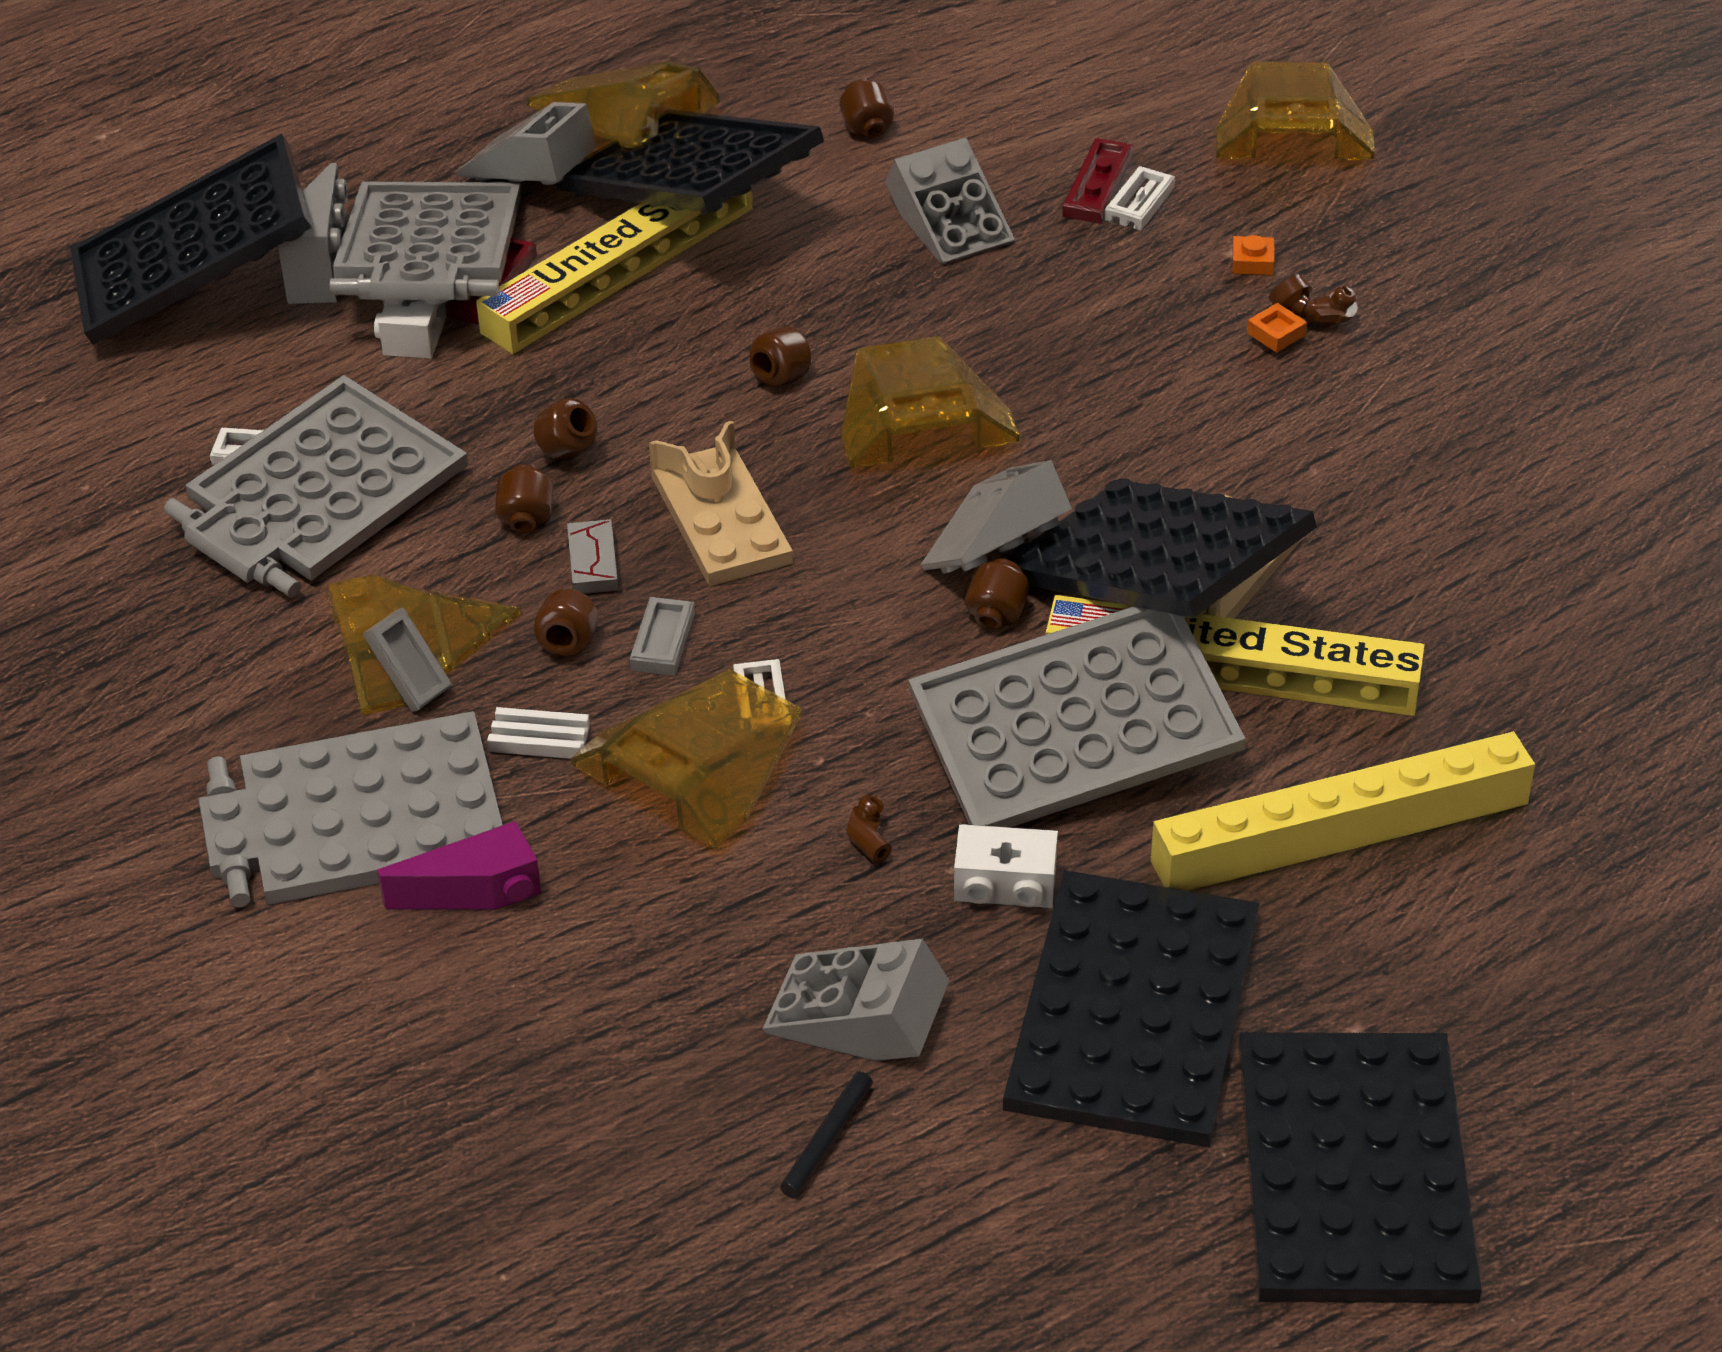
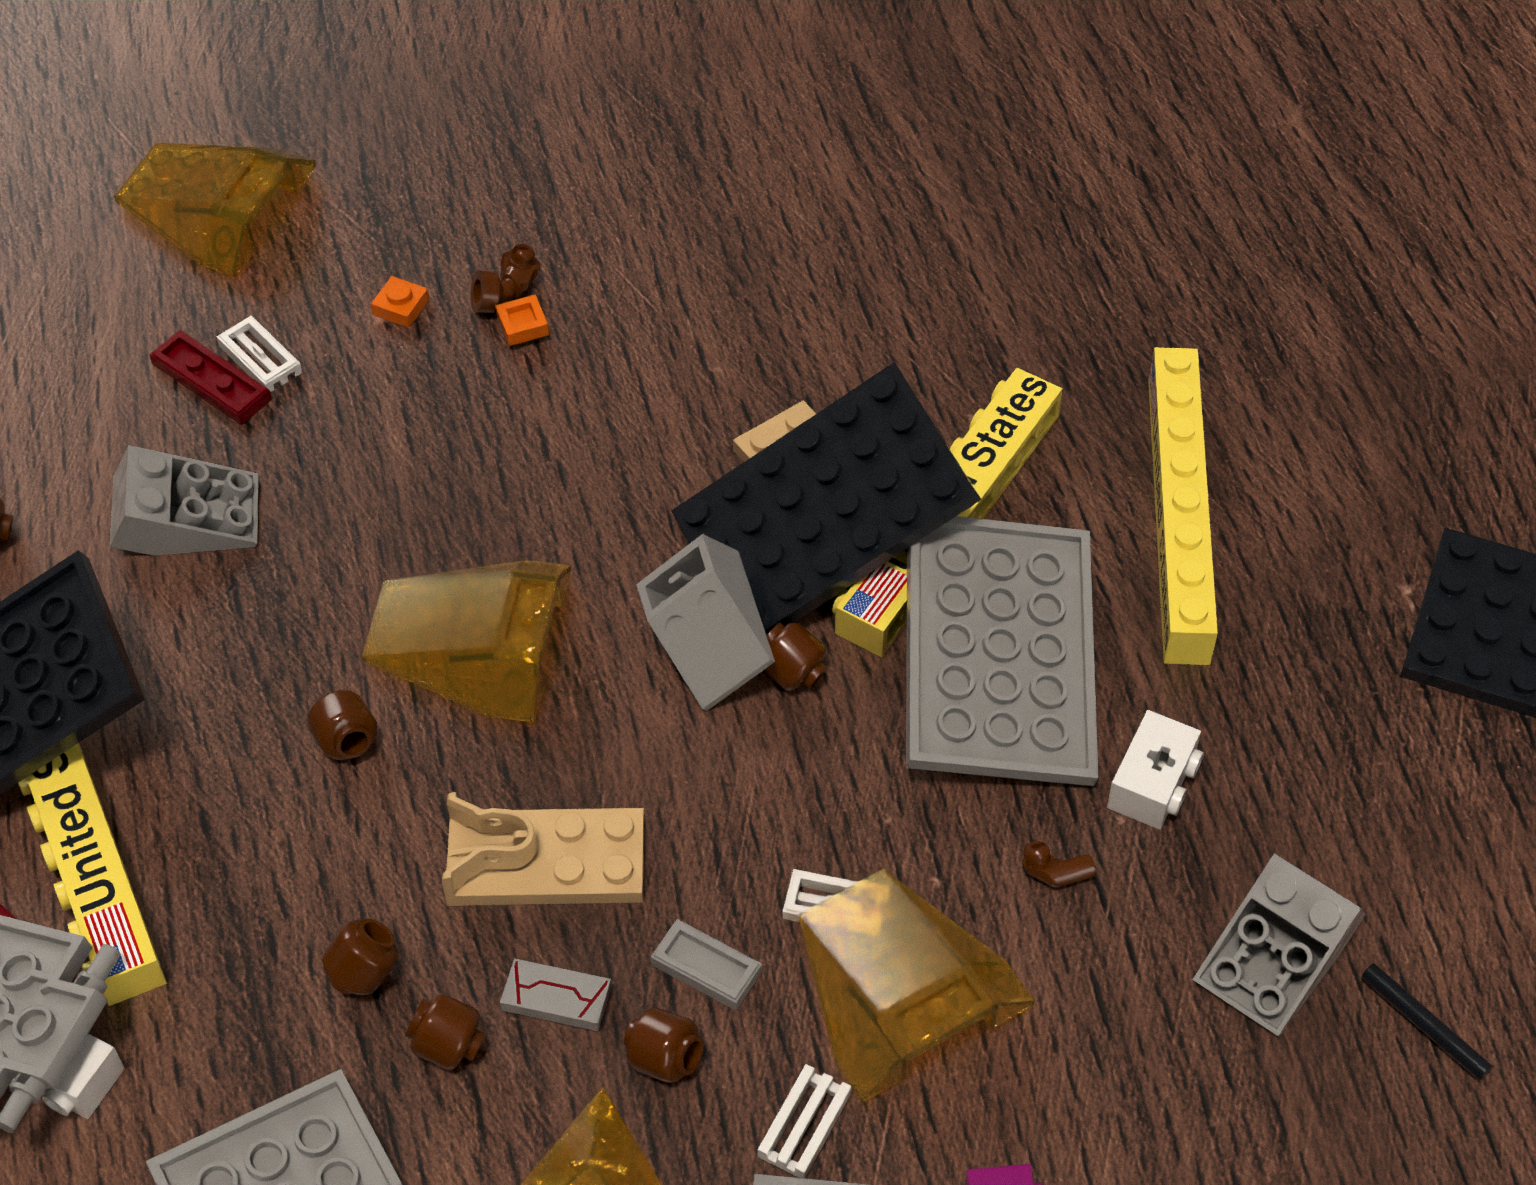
camera: 70 degrees left, 10 degrees up
(1133, 1008) = (1343, 735): black plate -> none

